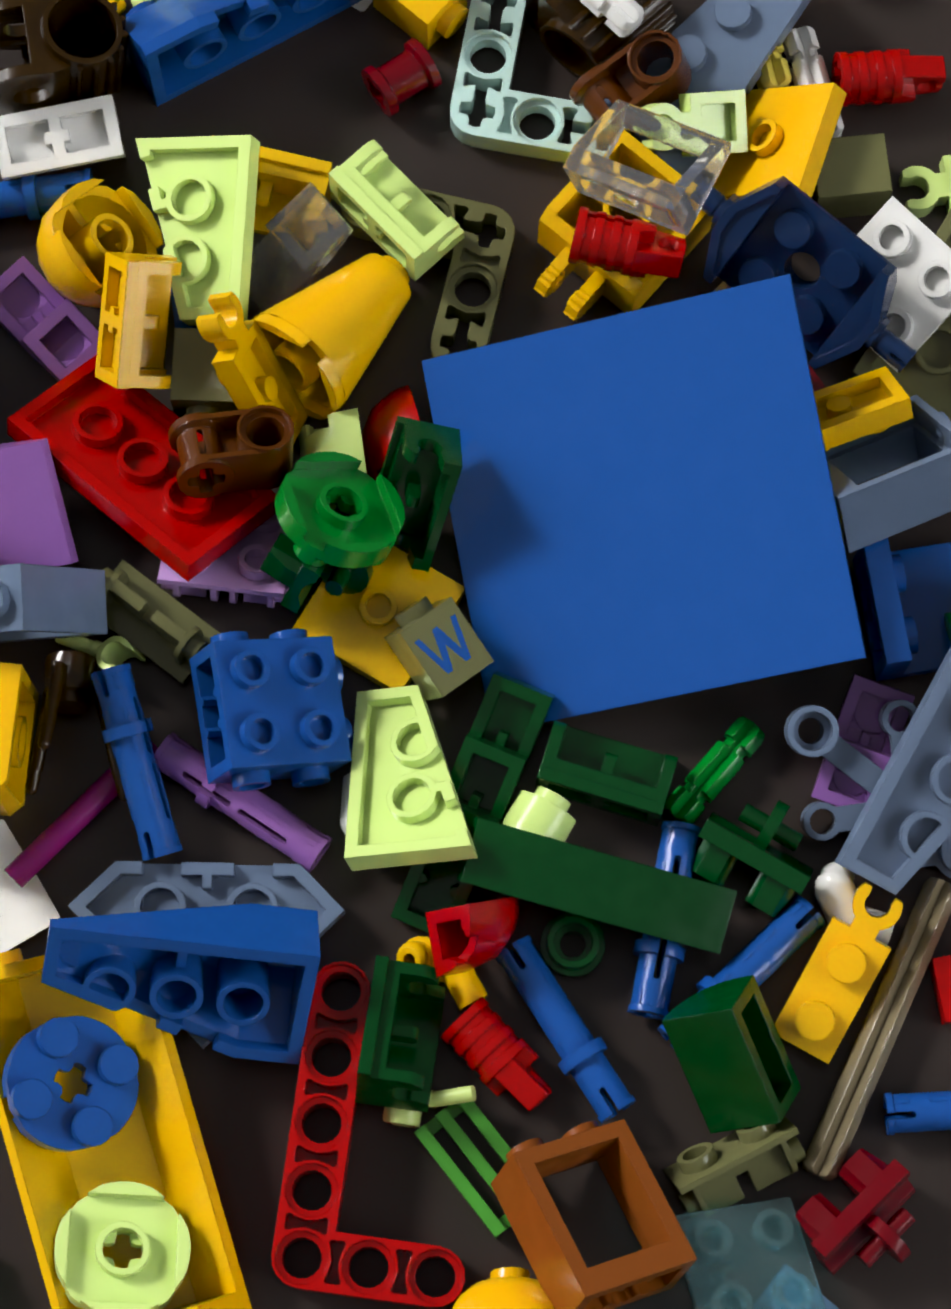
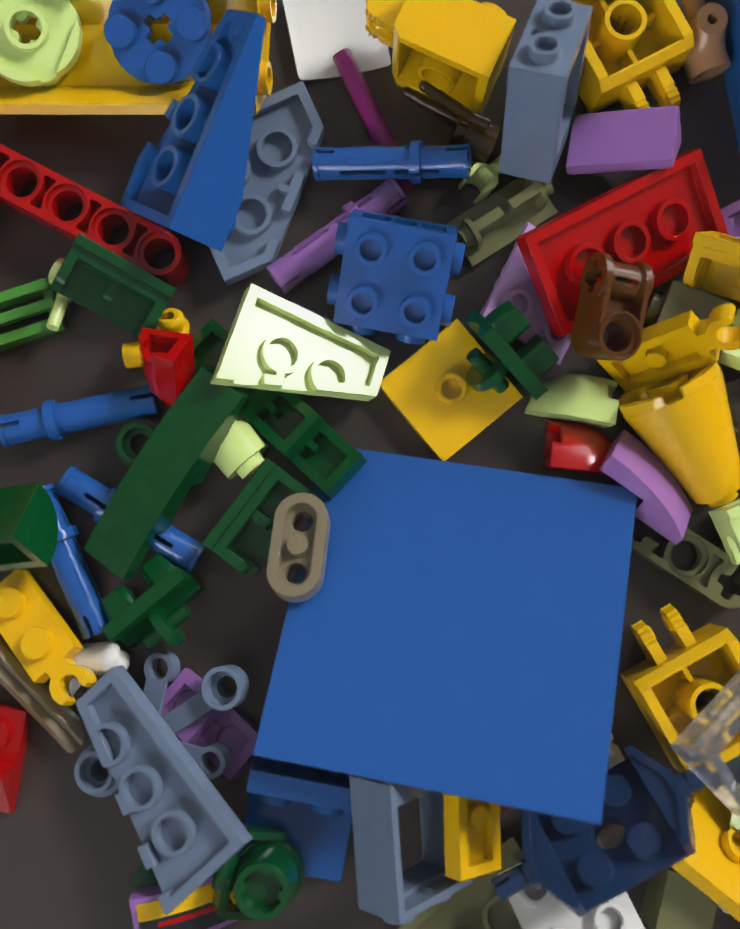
camera: 115 degrees right, 10 degrees up
(323, 534) = (511, 353): green plate -> none
(402, 360) = (661, 498): none -> medium lavender slope
(425, 470) = (532, 446): dark green hinge -> none
(437, 646) = (398, 420): olive brick -> none
(497, 1054) = (76, 358): red hinge -> none
(625, 245) = (678, 690): red hinge -> none
(626, 701) = (298, 549): none -> dark tan plate
(714, 771) = (232, 601): green axle -> none

